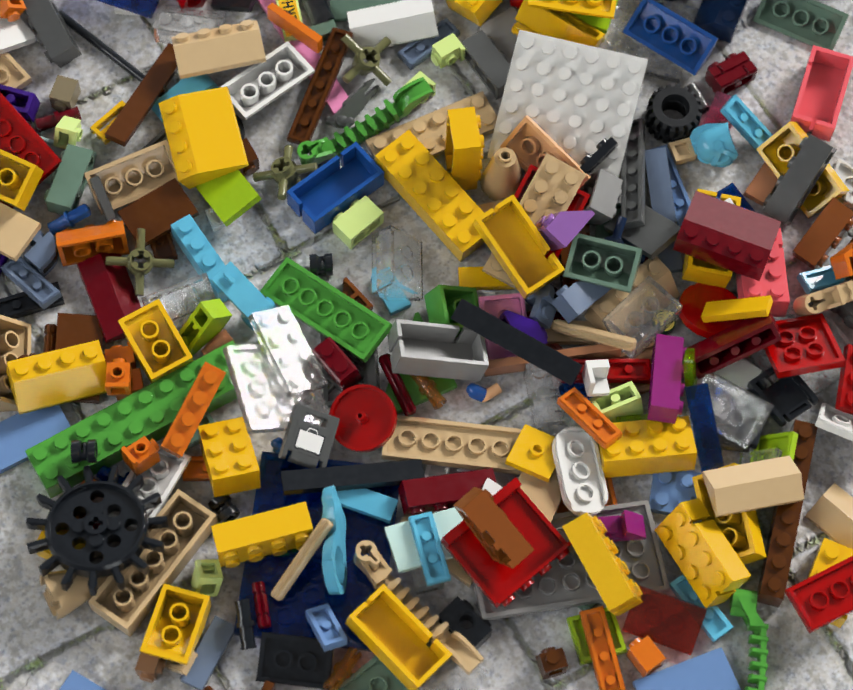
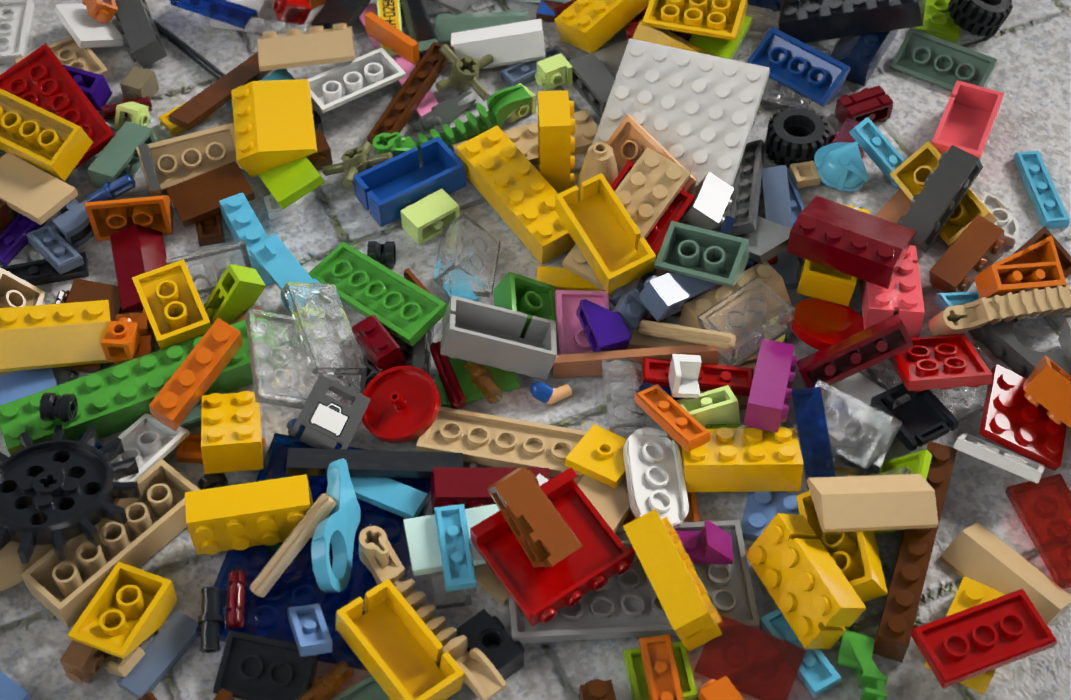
camera: 10 degrees right, 15 degrees down
(139, 253) = (182, 229): olive bar -> none
(141, 455) = (129, 421): orange brick -> none
(207, 577) = (176, 562): yellowish green brick -> none
(517, 342) = (594, 333): black tile -> none
(562, 227) = (656, 210): medium lavender slope -> none
(604, 148) = (709, 160): black plate -> none
(690, 367) = (799, 370): clear neon green tile -> none
(737, 309) = (860, 315): yellow tile -> none

